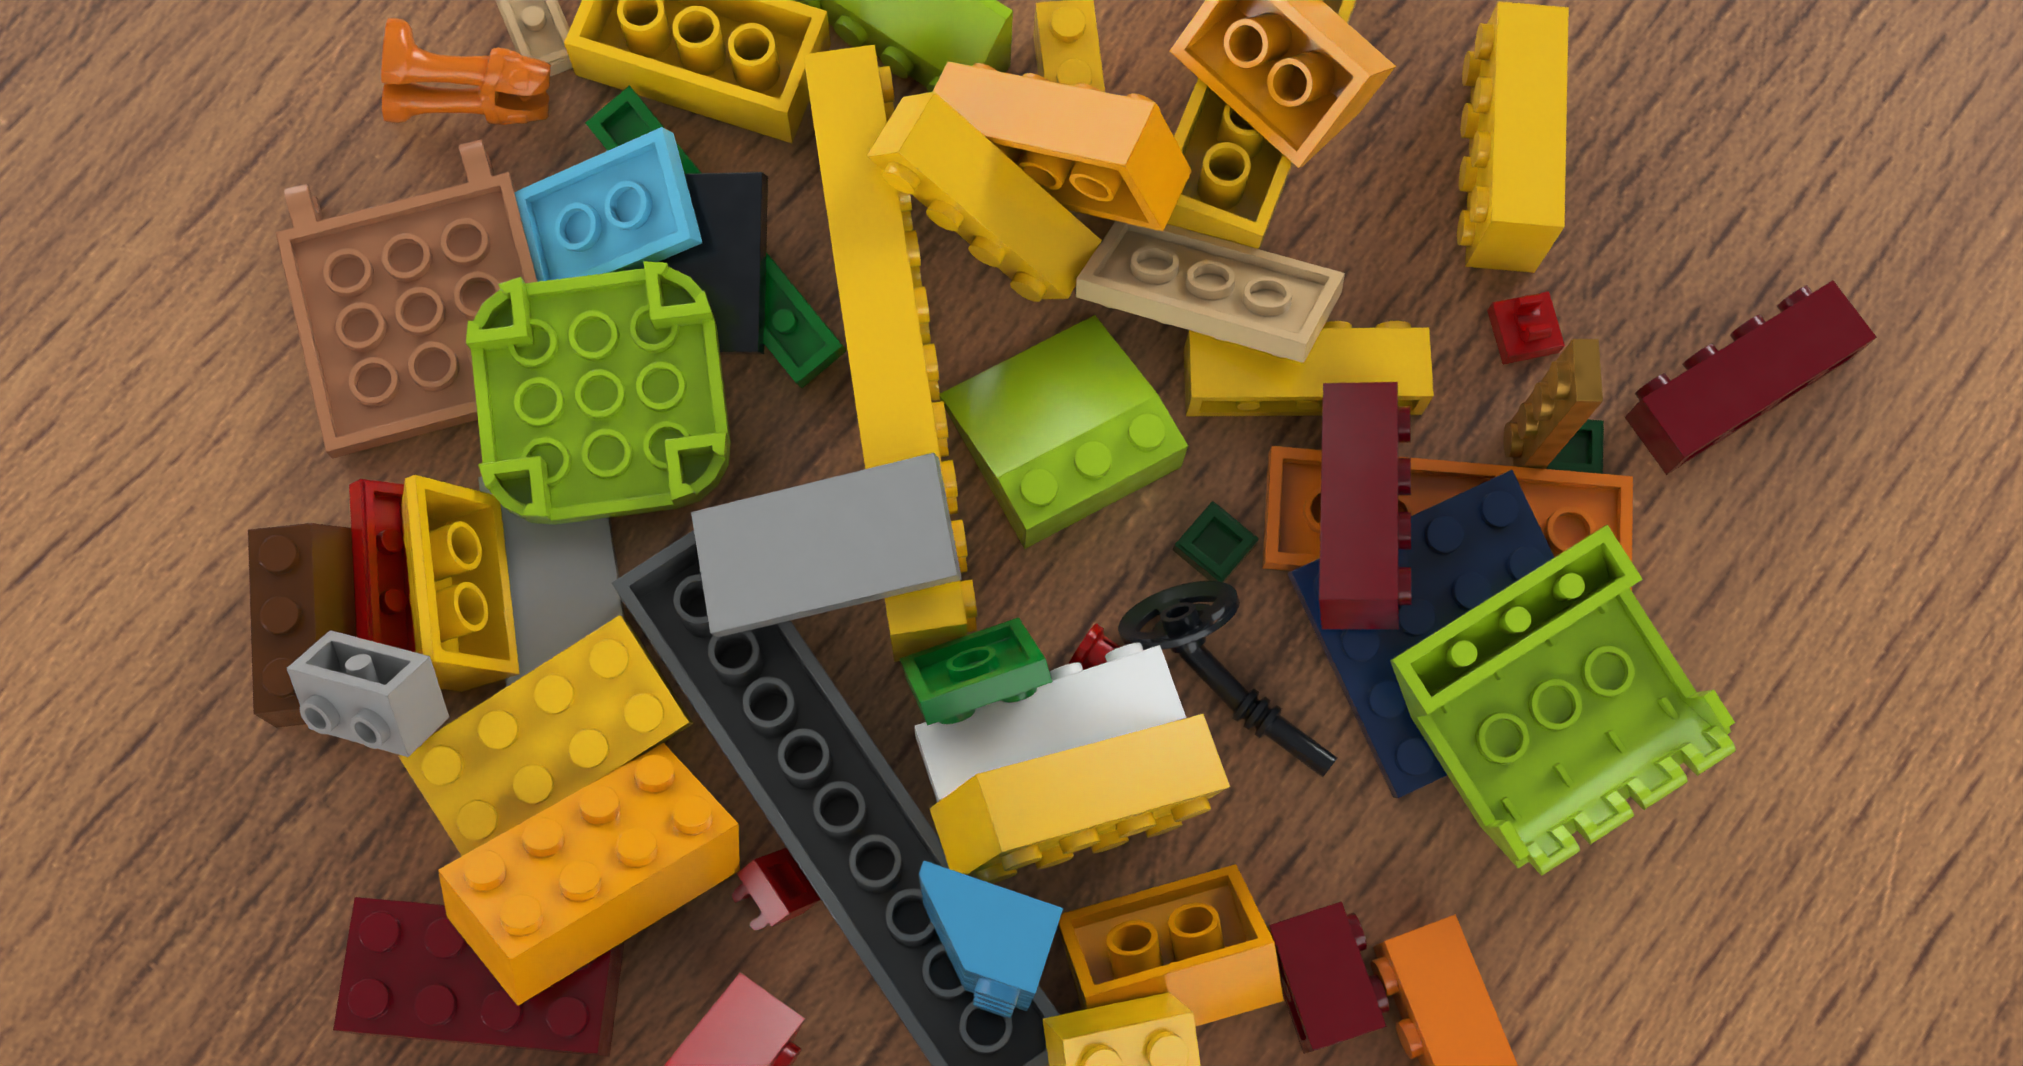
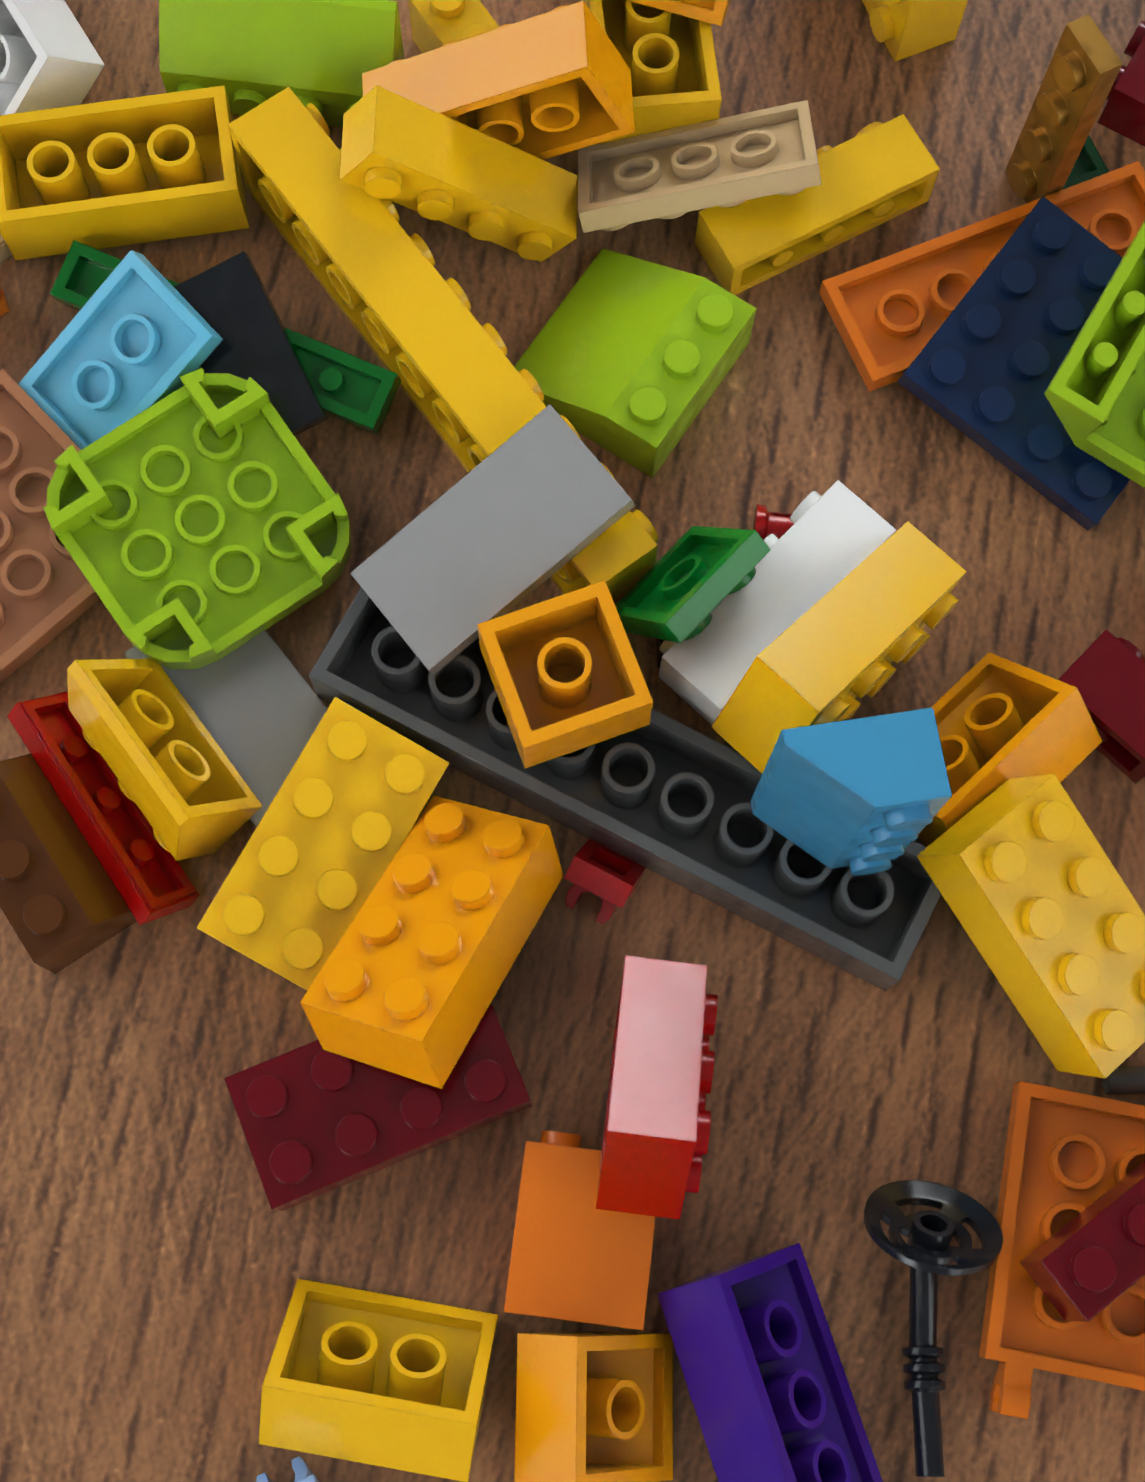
camera: 25 degrees left, 0 degrees up
(368, 693) = (139, 881): light grey brick -> none
(817, 699) = (565, 674): none -> light orange brick
(1184, 631) = (830, 461): black dish -> none
(1215, 543) = (817, 391): dark green tile -> none
(1361, 506) = (940, 284): dark red brick -> none
(1525, 327) = (976, 85): red tile -> none

